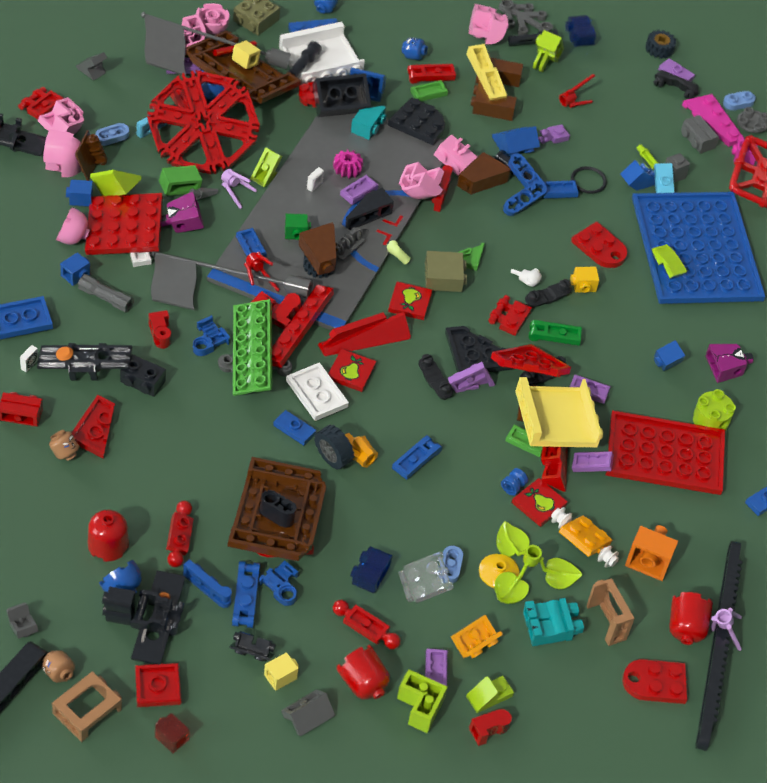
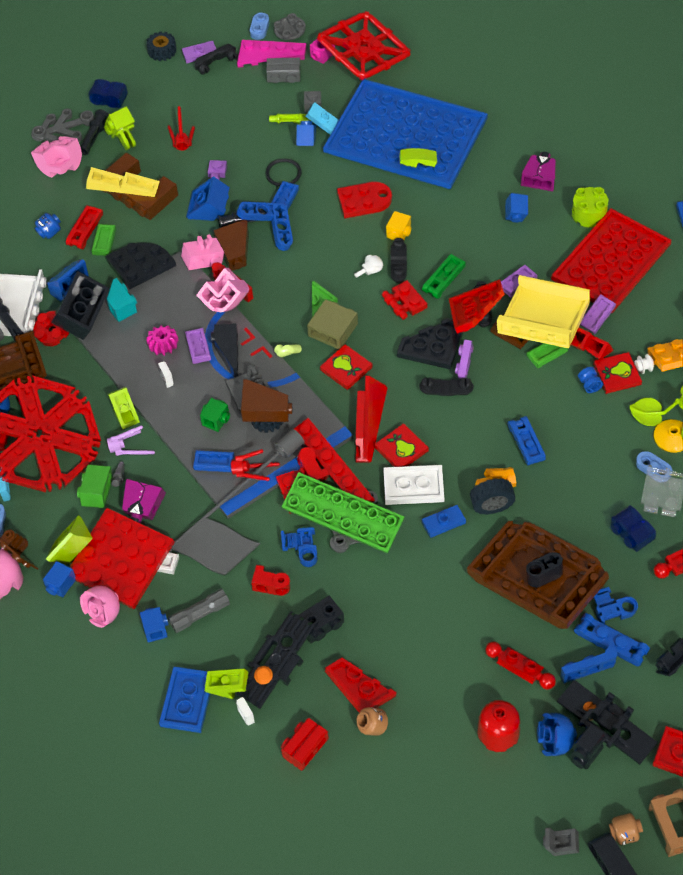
camera: 50 degrees left, 5 degrees up
(45, 332) = (226, 682): none -> lime slope

